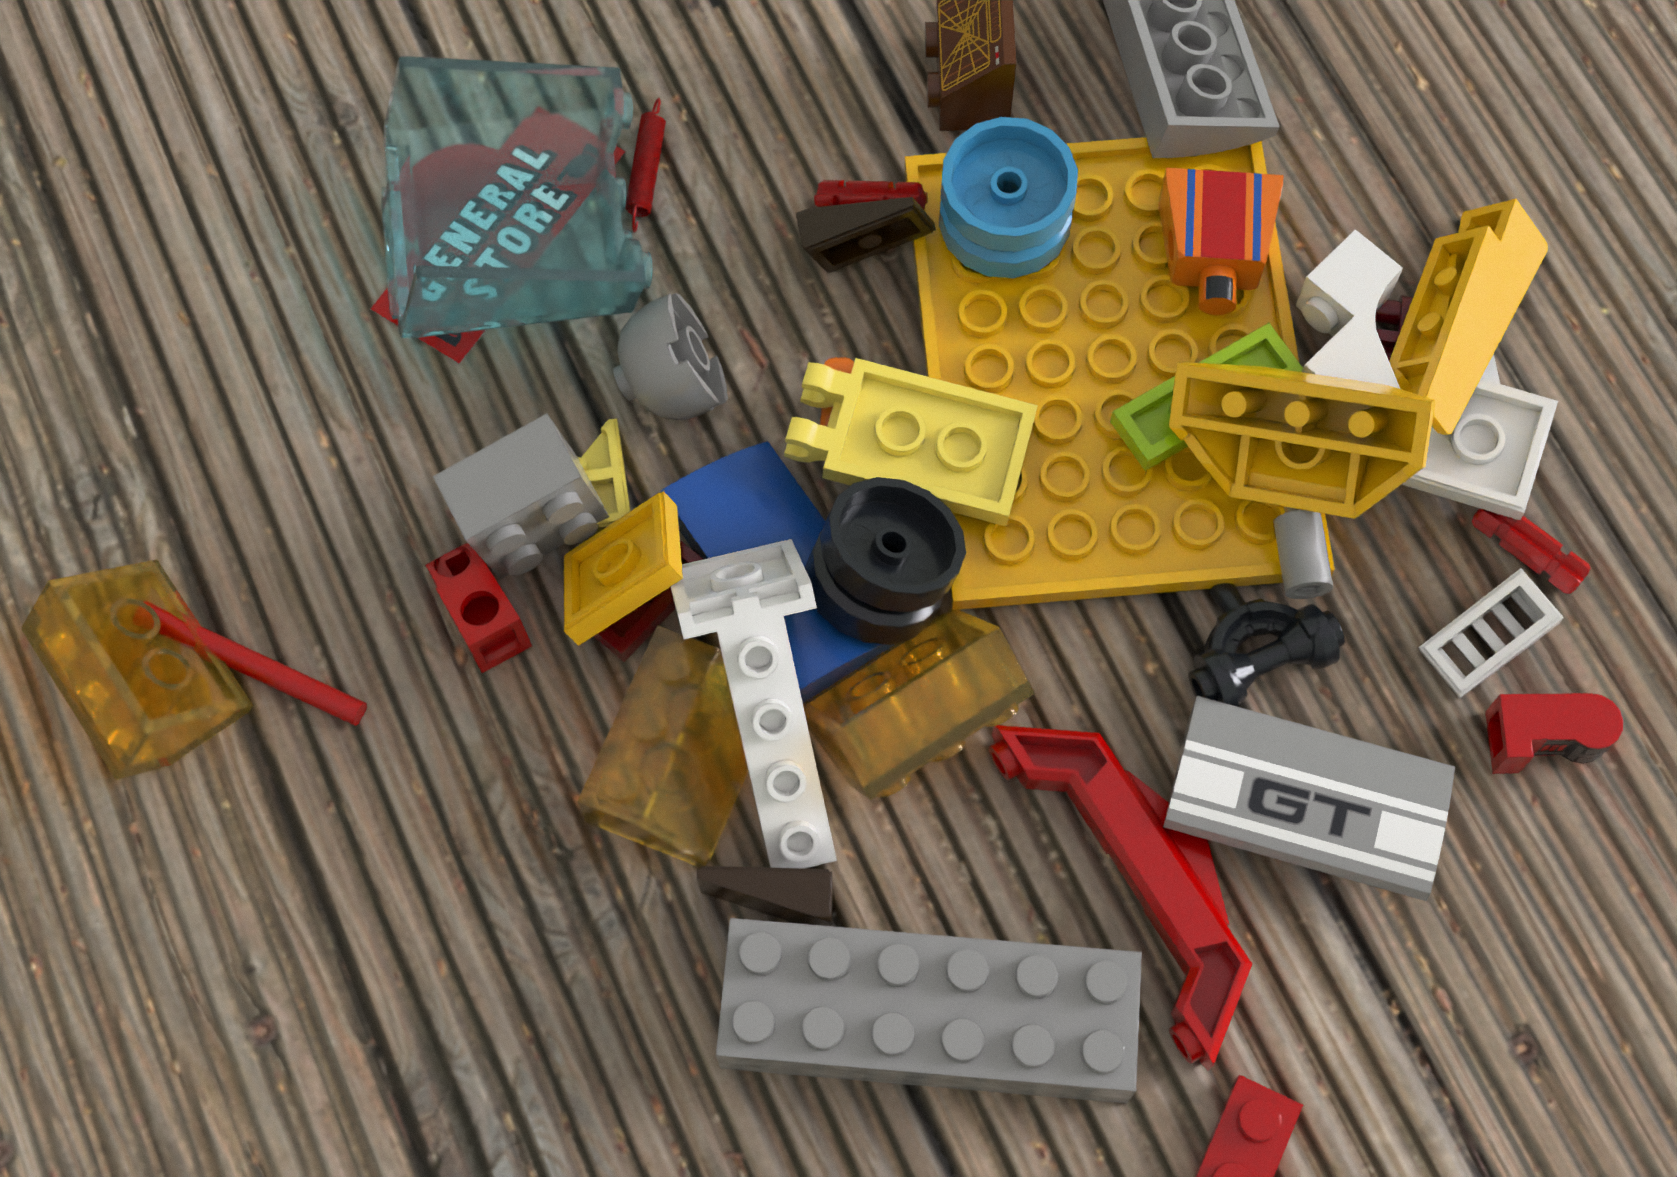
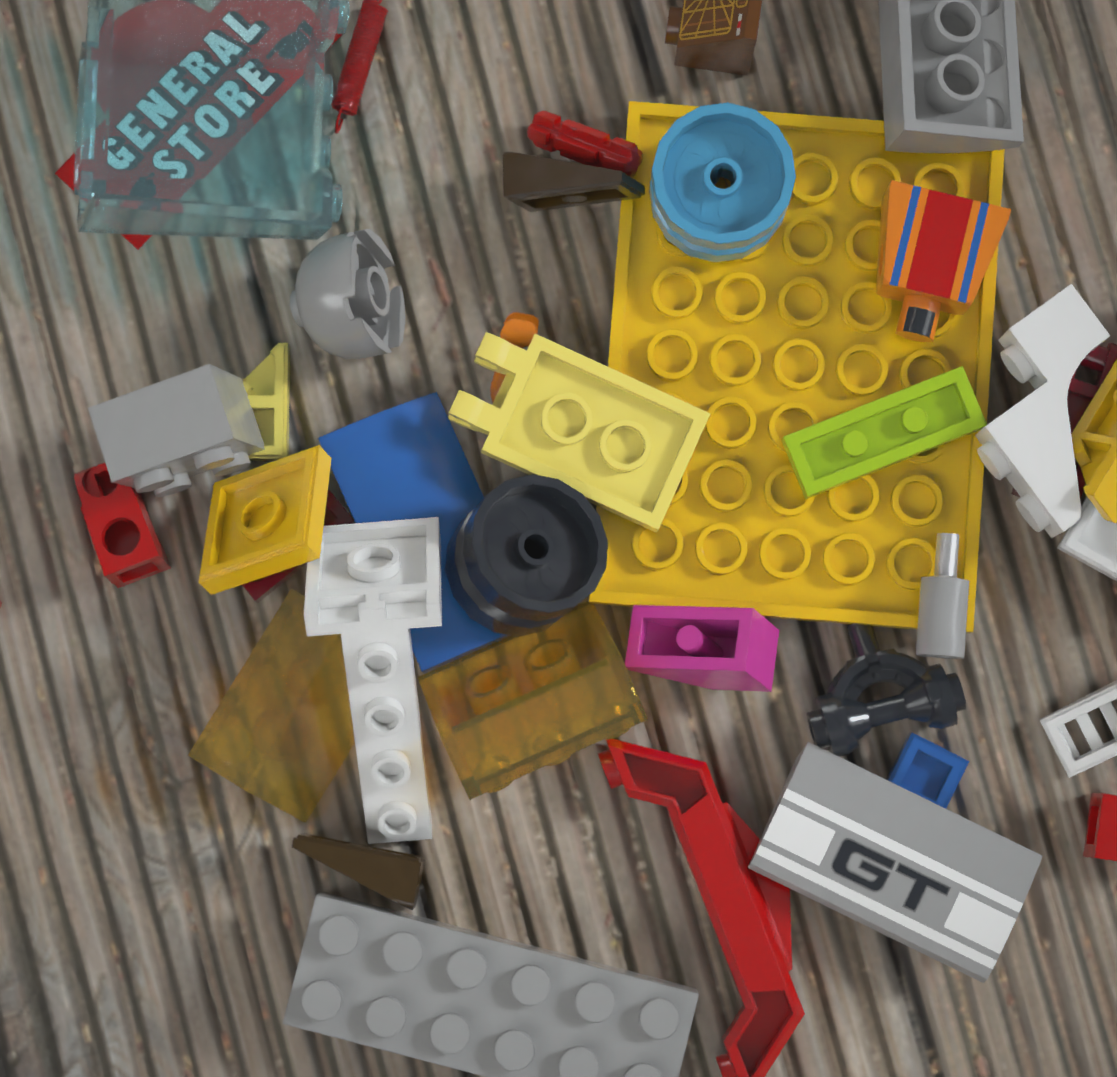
camera: 10 degrees right, 15 degrees up
(1077, 622) = (704, 646): none -> dark pink slope
(1300, 435) = (962, 503): yellow wedge -> none
(1321, 707) = (927, 770): none -> blue tile

